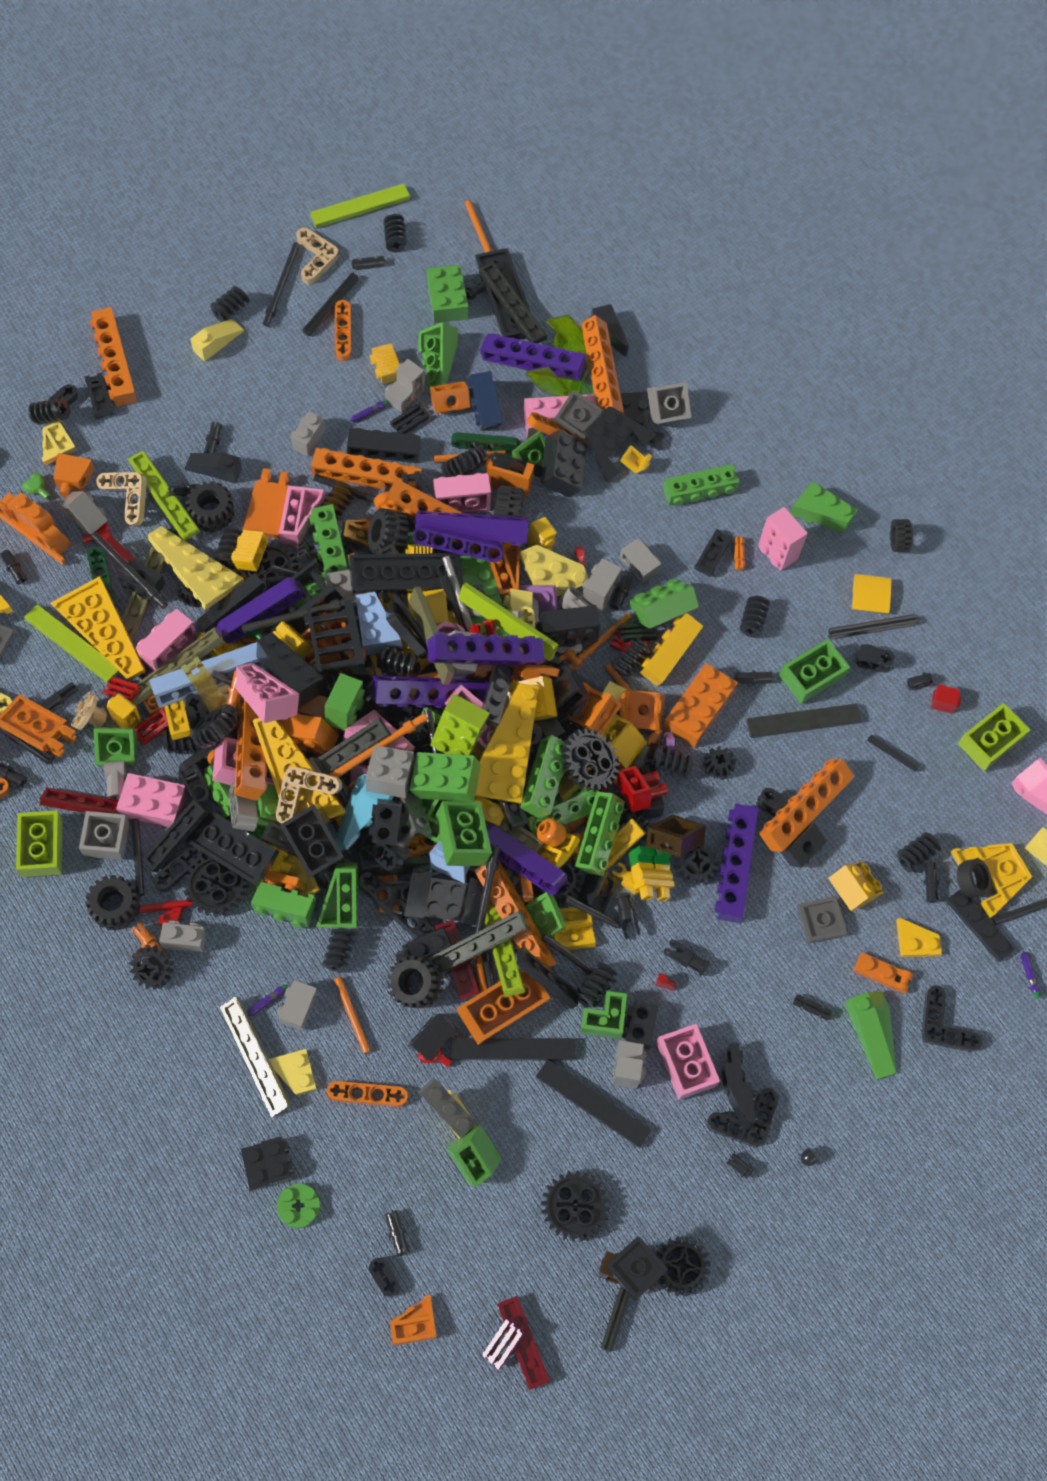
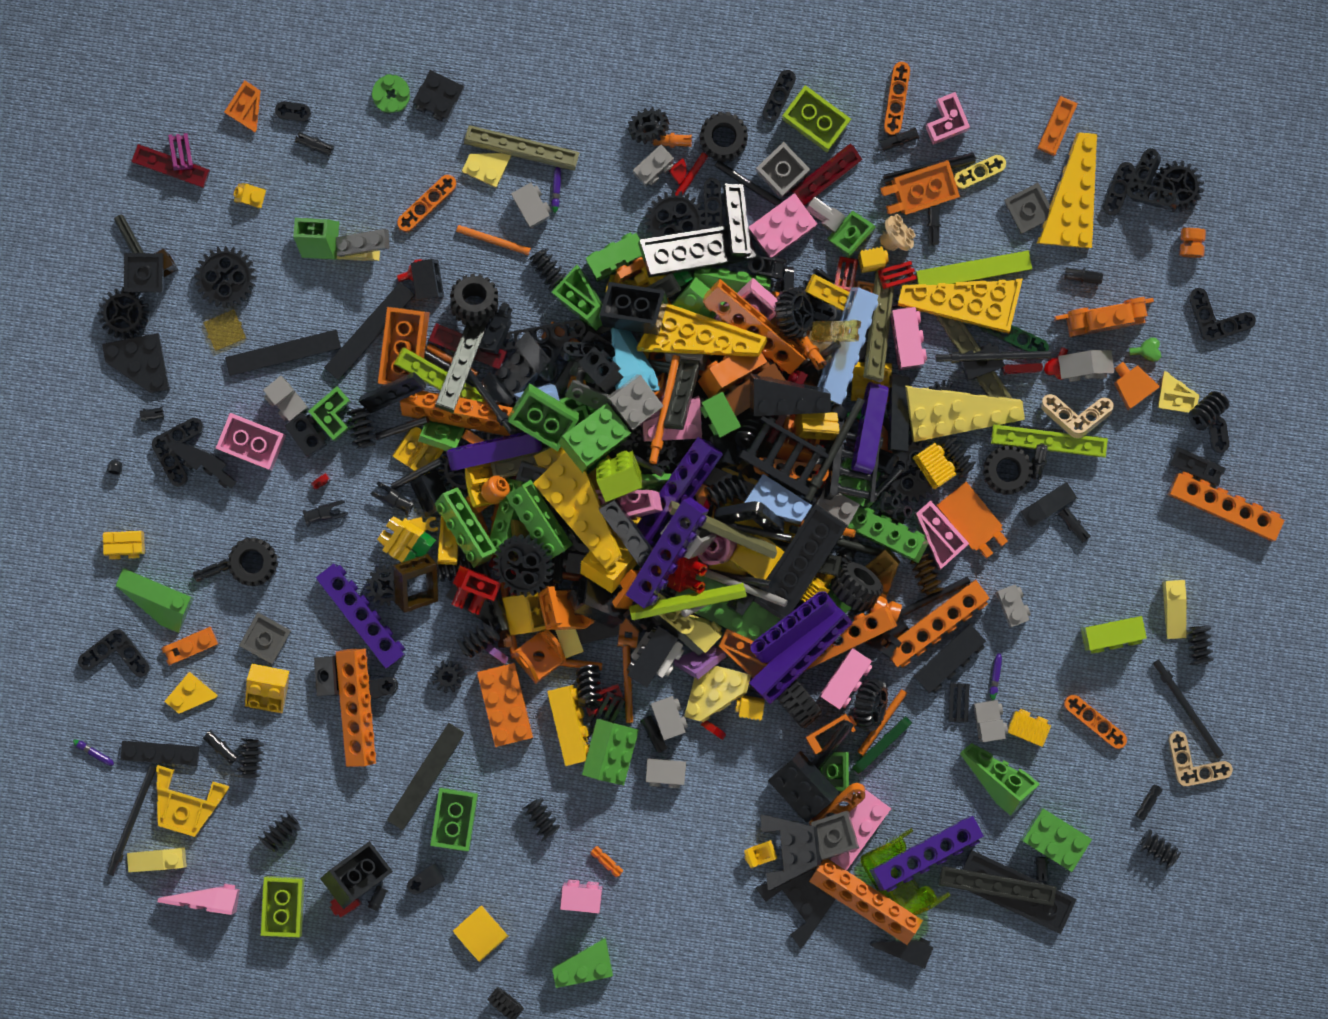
camera: 135 degrees right, 20 degrees up
(29, 900) = (780, 80): none -> black beam
(242, 811) = (705, 277): light grey beam -> none
(266, 694) = (776, 361): bright pink wedge -> none
(269, 355) = (1114, 634): none -> lime brick
(296, 786) = (686, 330): tan beam -> none
(329, 305) = (1131, 733): black axle -> none
(359, 205) = (1217, 846): lime tile -> none
(441, 393) = (948, 751): orange brick -> none
(477, 225) = (1107, 931): orange bar -> none
(484, 400) = (920, 776): dark blue wedge -> none
(489, 1250) = (249, 195): none -> yellow bracket
(572, 599) = (677, 686): light grey piece -> none
(618, 1169) = (224, 330): none -> clear yellow piece
(669, 402) = (786, 927): light grey brick -> none
(700, 485) = (692, 886): bright green brick -> none
(707, 1217) = (140, 361): none -> black plate
(713, 553) = (624, 840): black plate -> none
(753, 677) = (493, 770): black axle -> none
(765, 988) = (236, 556): none -> black tyre
(860, 1093) = (123, 543): none -> yellow brick
(872, 626) = (453, 907): black axle -> none
(893, 753) = (341, 820): black bar -> none
(922, 700) = (356, 875): none -> black brick
(946, 783) = (280, 832): none -> black piece
(982, 877) = (201, 771): black tyre -> none

